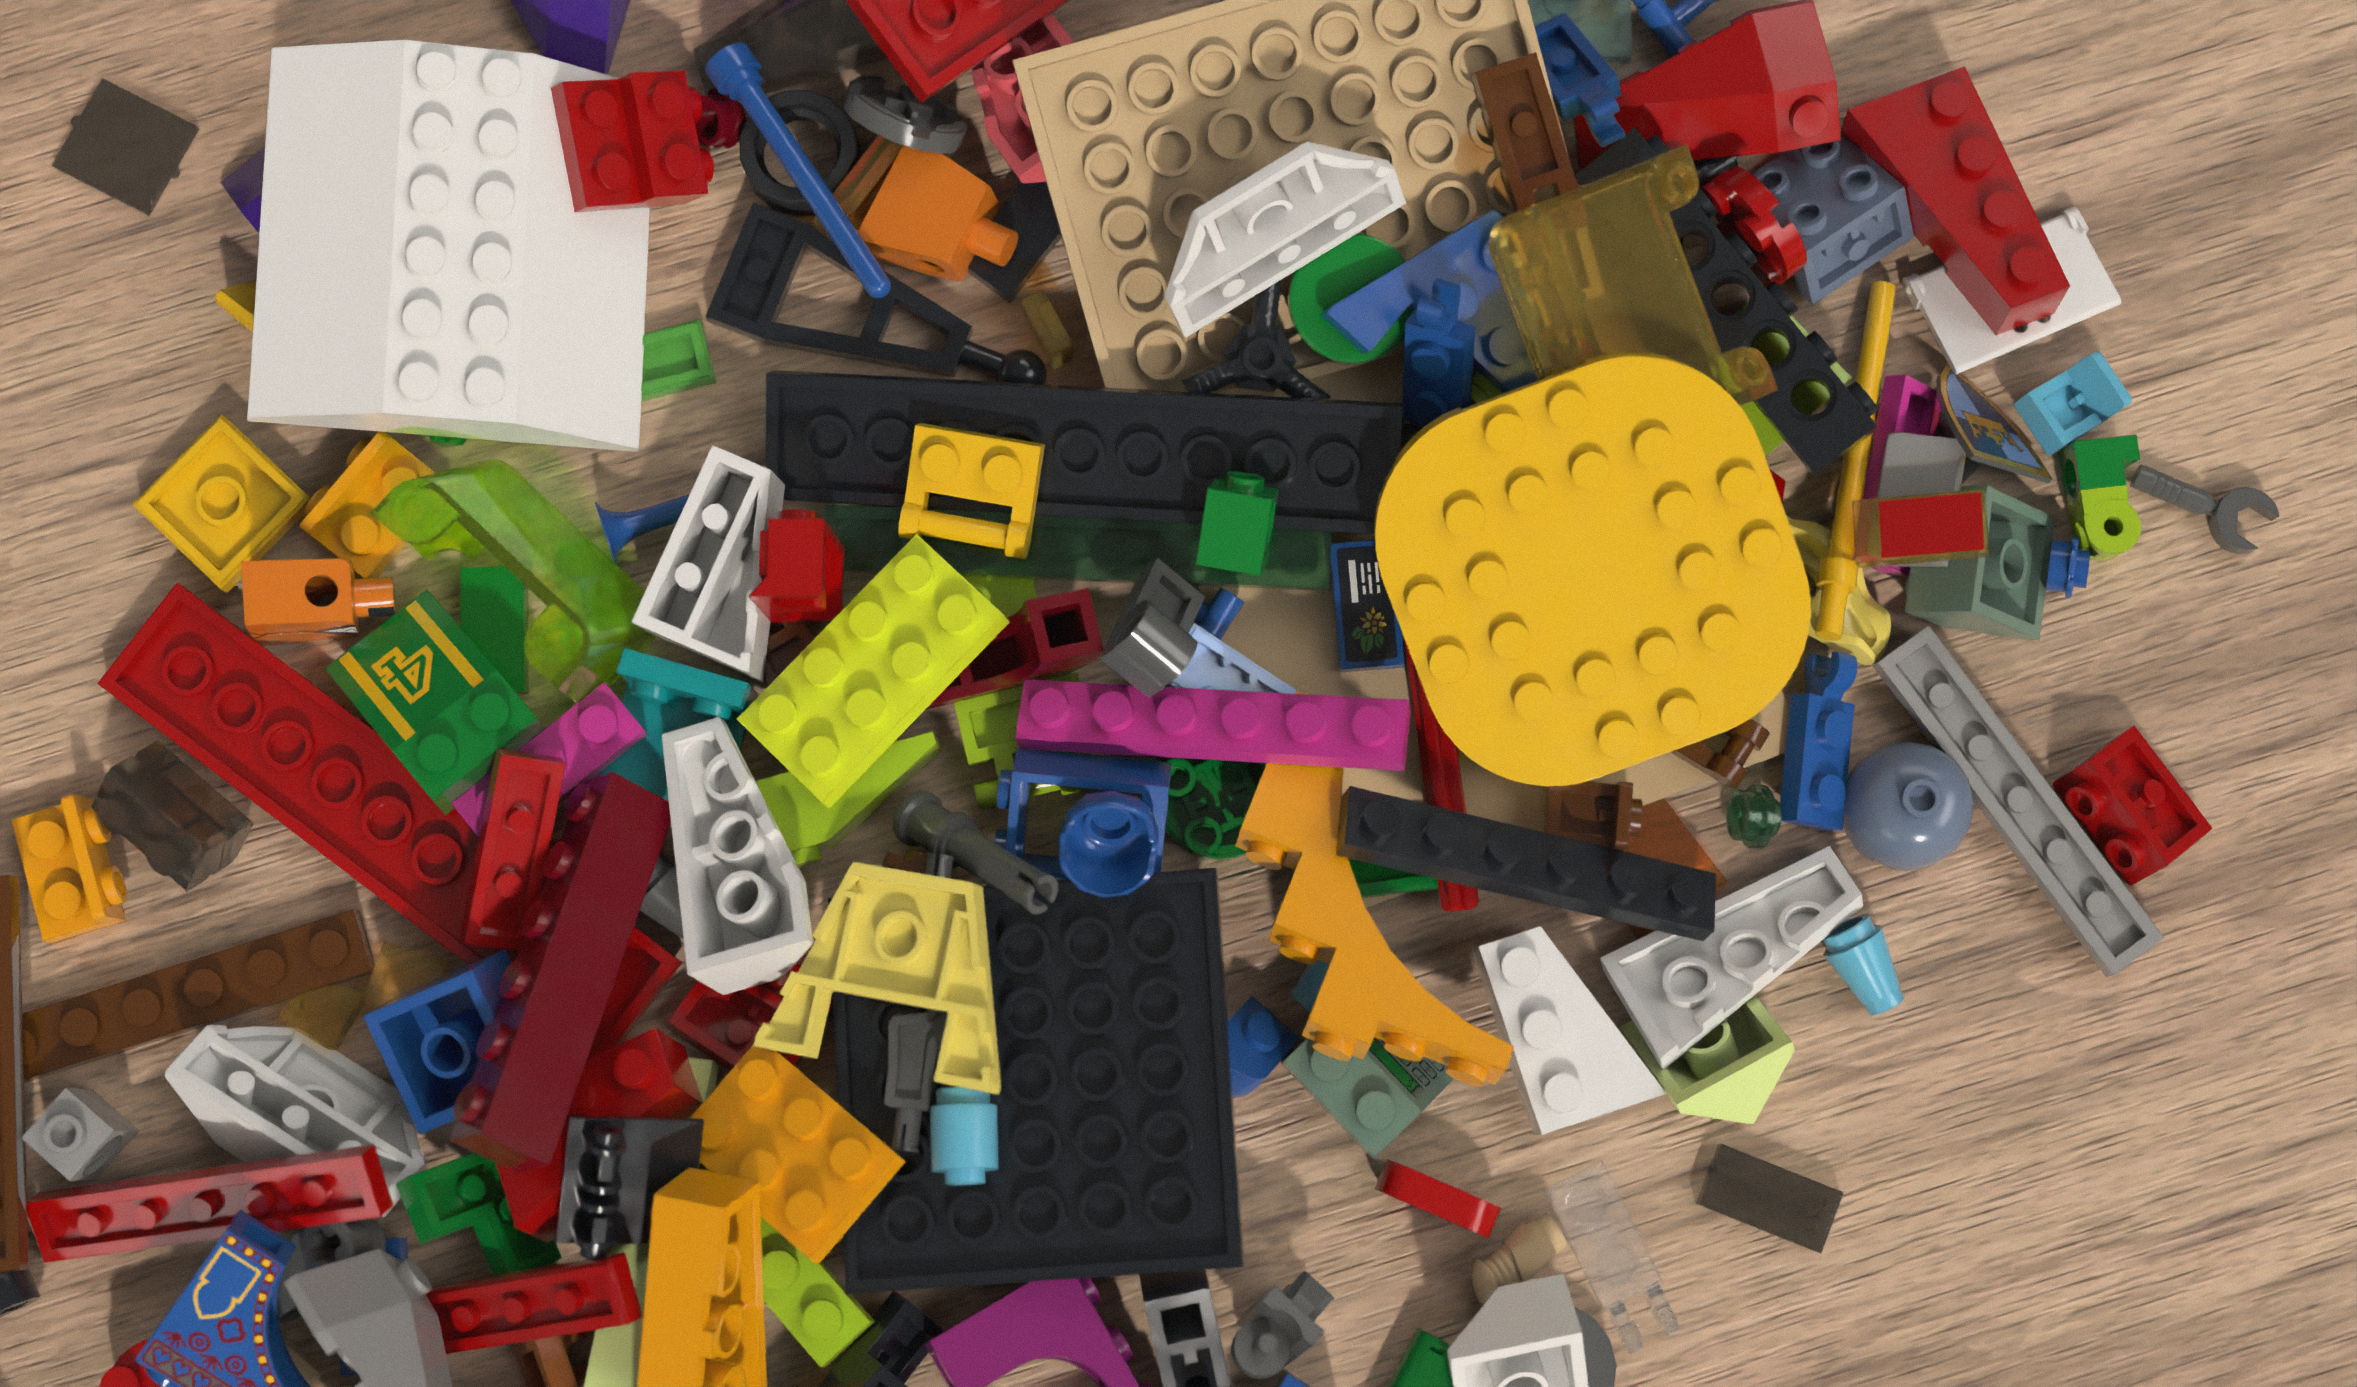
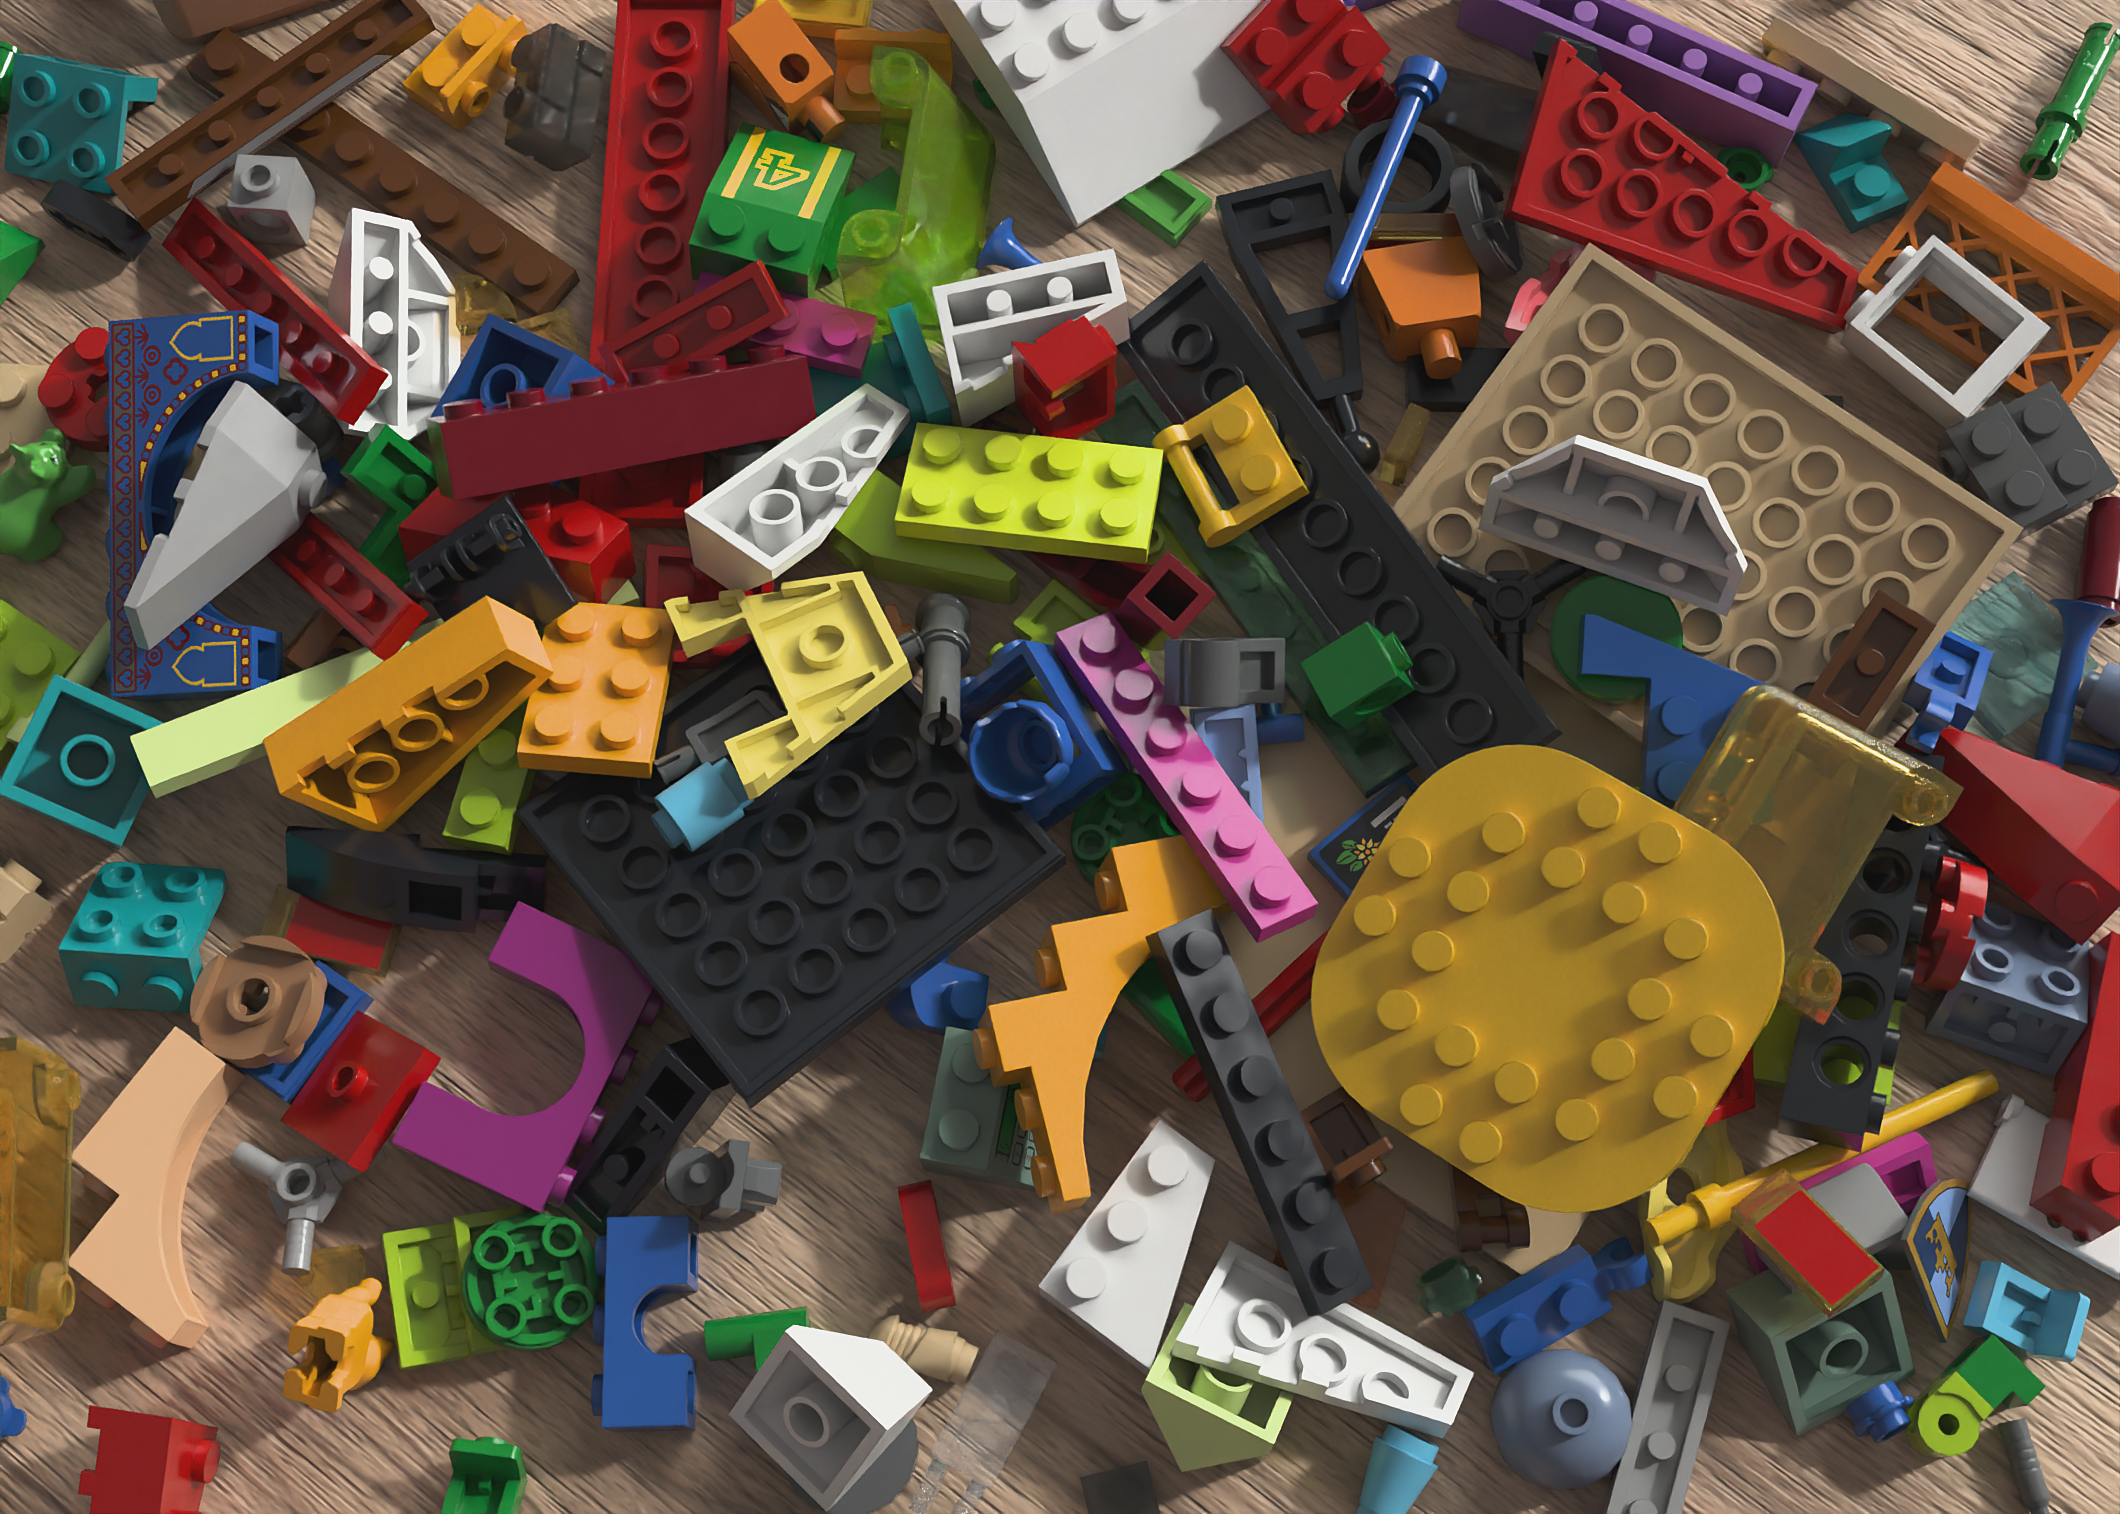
camera: 55 degrees right, 10 degrees down
(1437, 356) = (1631, 725): blue plate -> none

